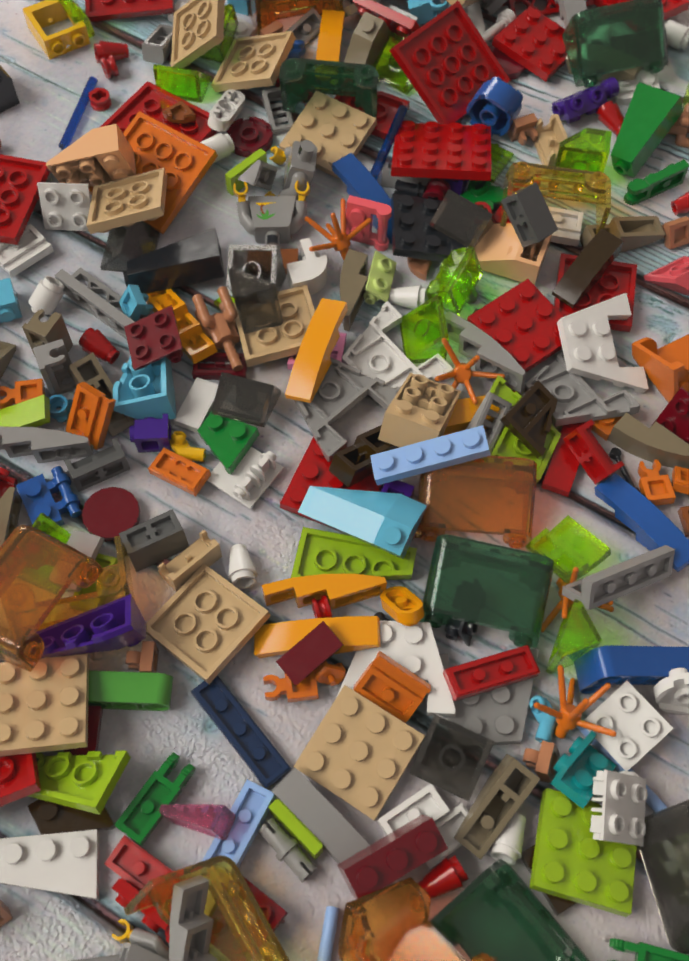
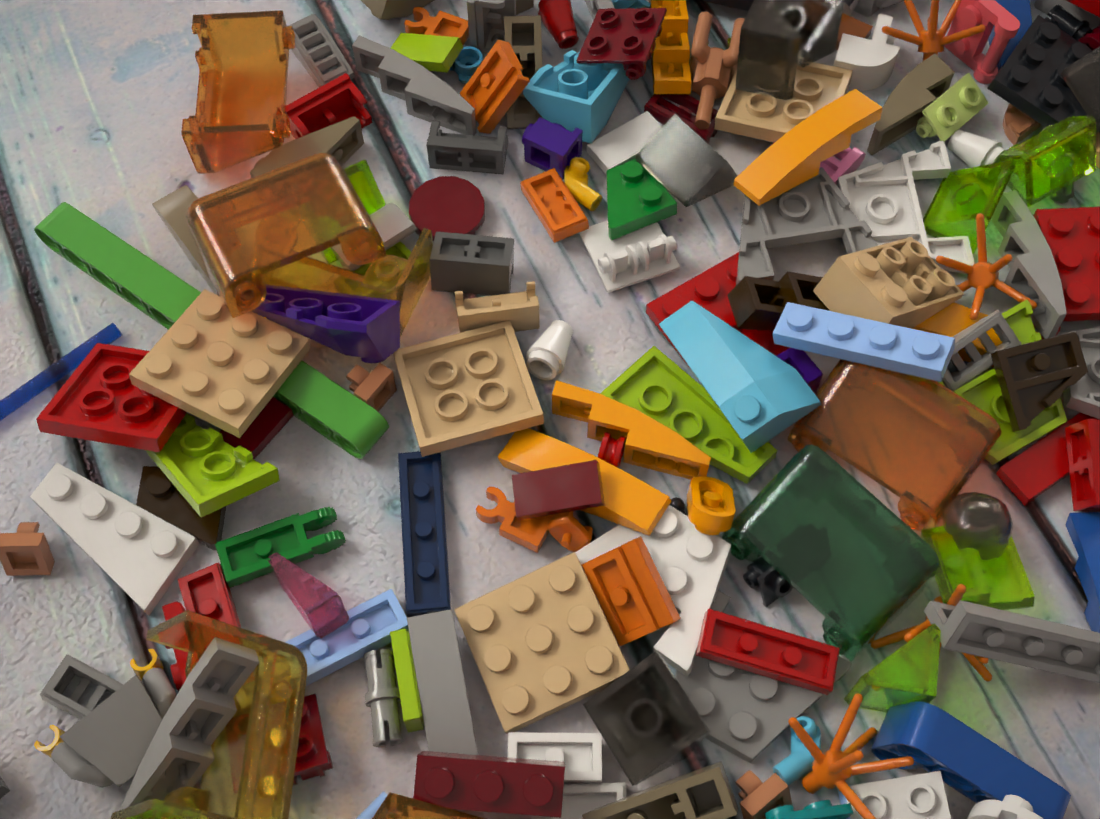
camera: 35 degrees right, 0 degrees up
(38, 496) = (381, 149): blue plate -> none
(555, 524) = (979, 523): none -> clear smoke hair

